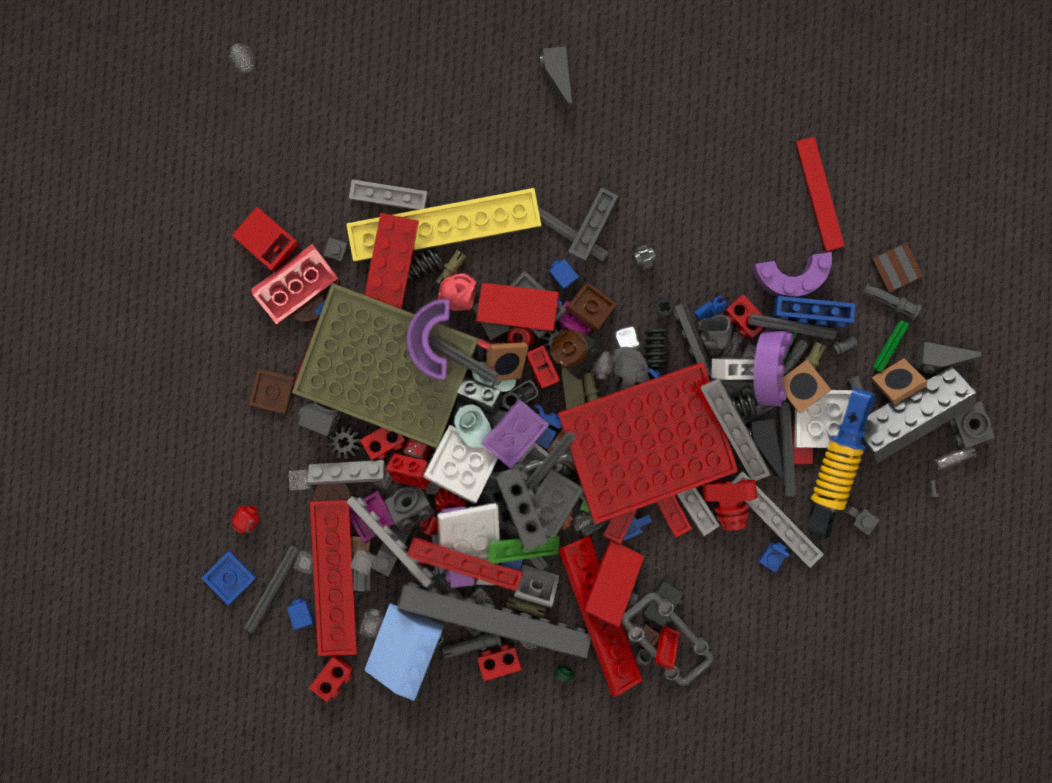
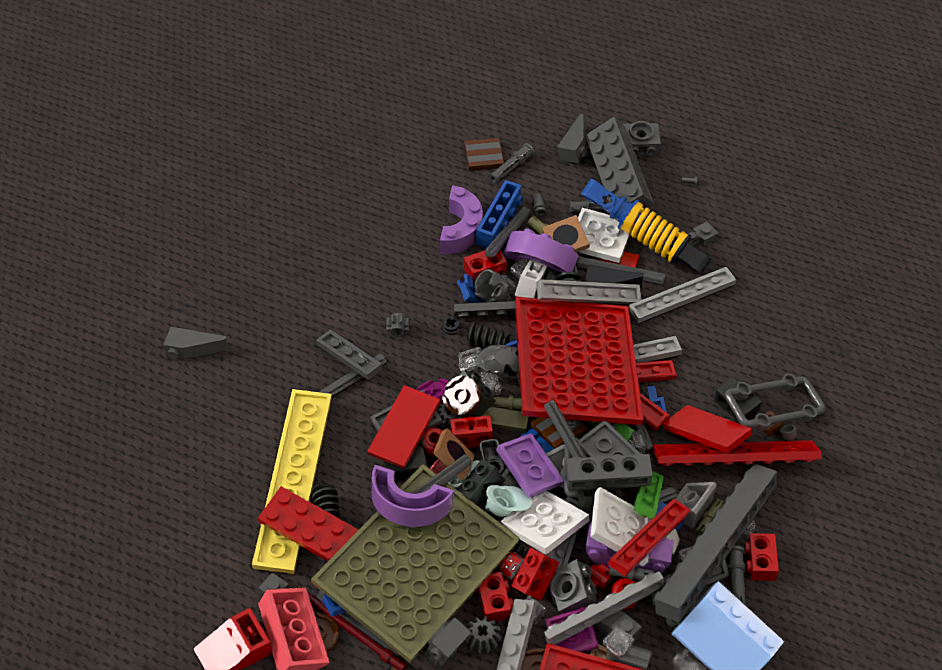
camera: 70 degrees left, 35 degrees down
(242, 58) = (30, 612): clear head -> none
(388, 195) = (239, 521): light grey plate -> none
(445, 499) = (575, 548): red gear -> none
(452, 266) = (340, 485): olive pin -> none
(459, 290) = (361, 482): coral helmet -> none
(563, 273) = (385, 392): blue brick -> none
(564, 673) = (788, 503): dark green plate -> none
(591, 307) = (427, 377): reddish brown tile -> none
(667, 648) = (783, 406): red tile -> none
(732, 510) = (664, 320): red beam -> none
(774, 556) = (717, 305): blue bracket -> none
(819, 194) = (395, 188): red tile -> none
(890, 346) = (552, 175): green axle -> none
(899, 381) = (583, 170): medium nougat tile -> none
(955, 457) = (666, 157): clear pin -> none

